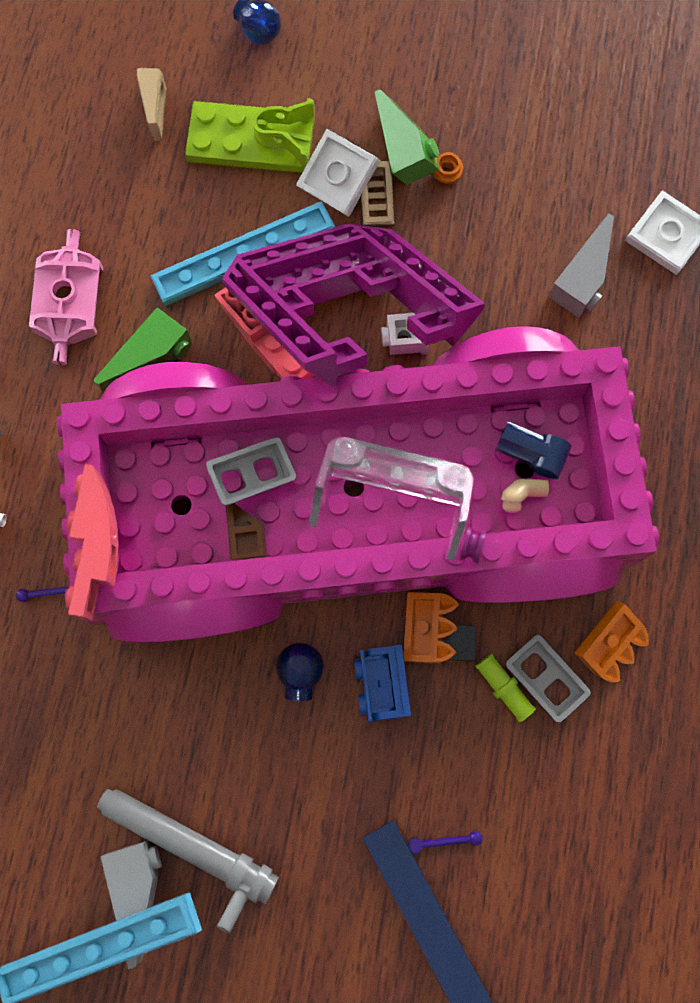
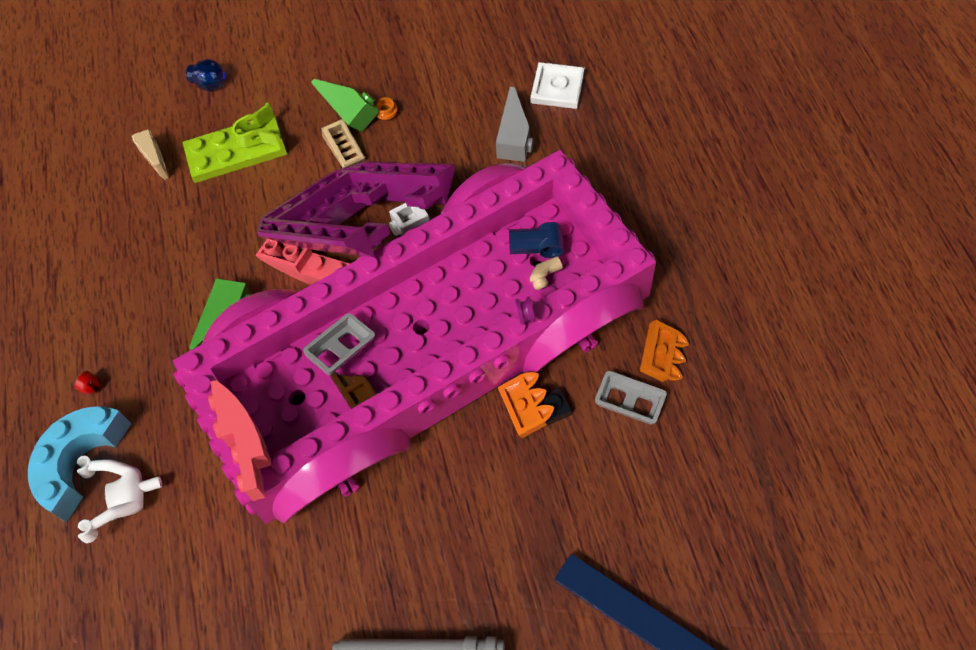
camera: 20 degrees left, 15 degrees down
(23, 594) = (199, 530): dark purple hinge -> none
(68, 318) = (151, 318): bright pink plate -> none
(210, 266) = (246, 238): medium azure tile -> none
(299, 670) = (444, 477): clear blue piece -> none
(338, 172) = (309, 141): white tile -> none
(383, 682) = (513, 459): blue hinge -> none
(397, 472) = (450, 291): clear windscreen -> none
(415, 844) = (598, 564): dark purple hinge -> none
(505, 687) = (603, 419): lime pin -> none

